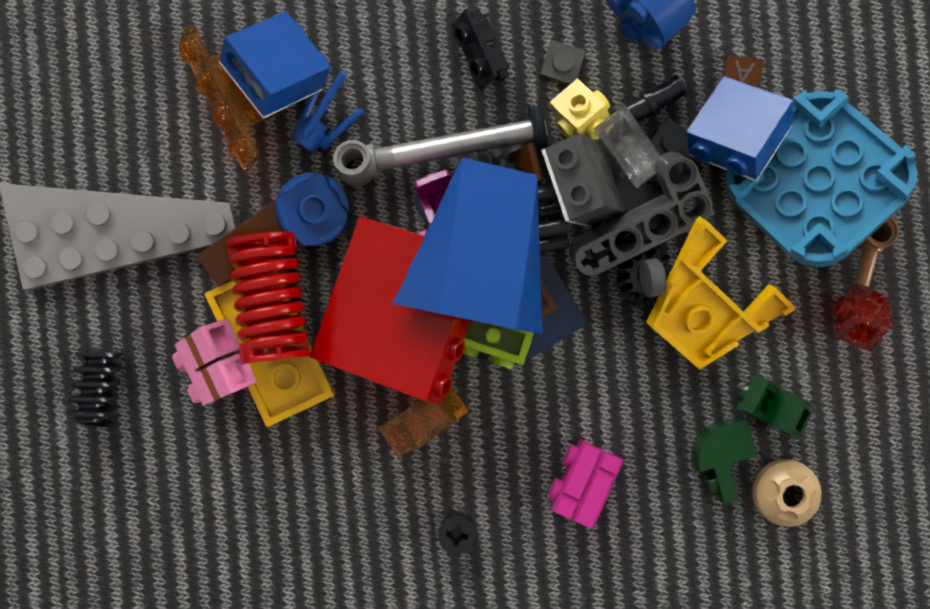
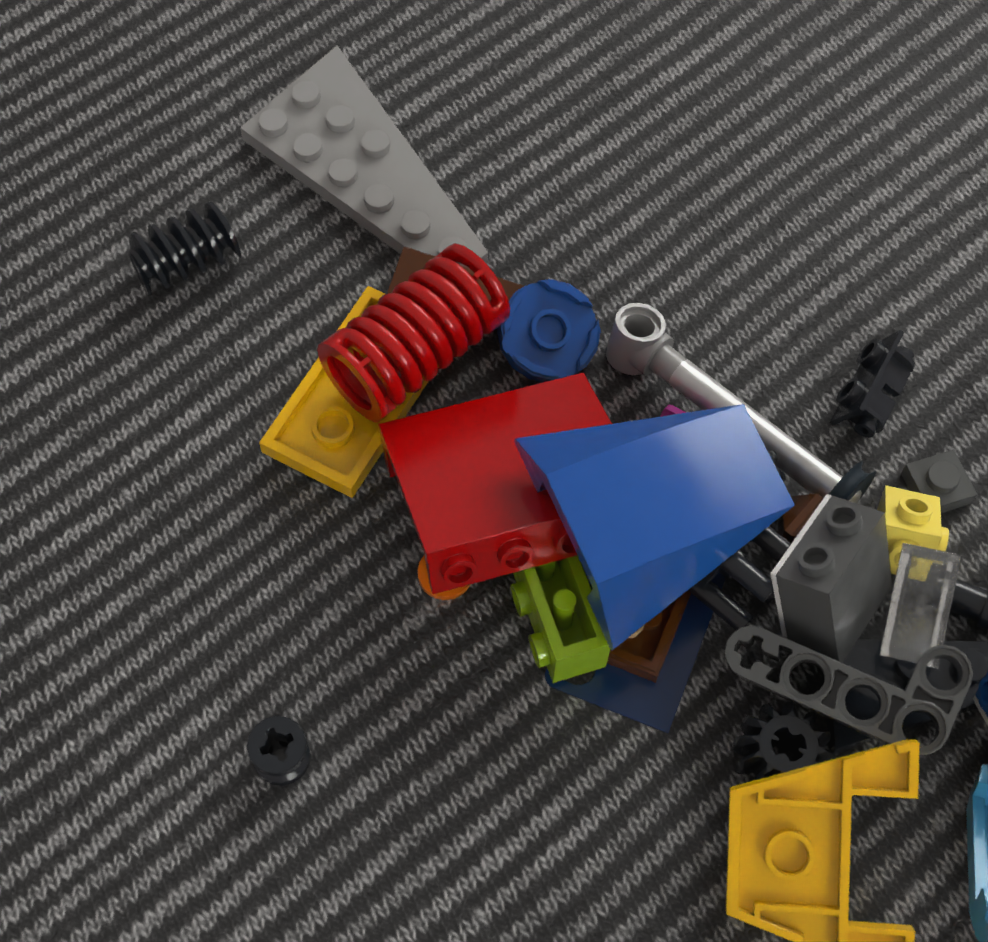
camera: 55 degrees right, 25 degrees down
(199, 357) = (290, 334): bright pink hips -> none
(229, 105) = (608, 184): clear orange bracket -> none
(274, 64) = (673, 190): blue piece -> none
(310, 130) = (633, 277): blue plant -> none
(421, 423) = (399, 604): clear orange brick -> none
(584, 483) = (462, 866): dark pink brick -> none
(652, 277) = (792, 739): dark grey tile -> none

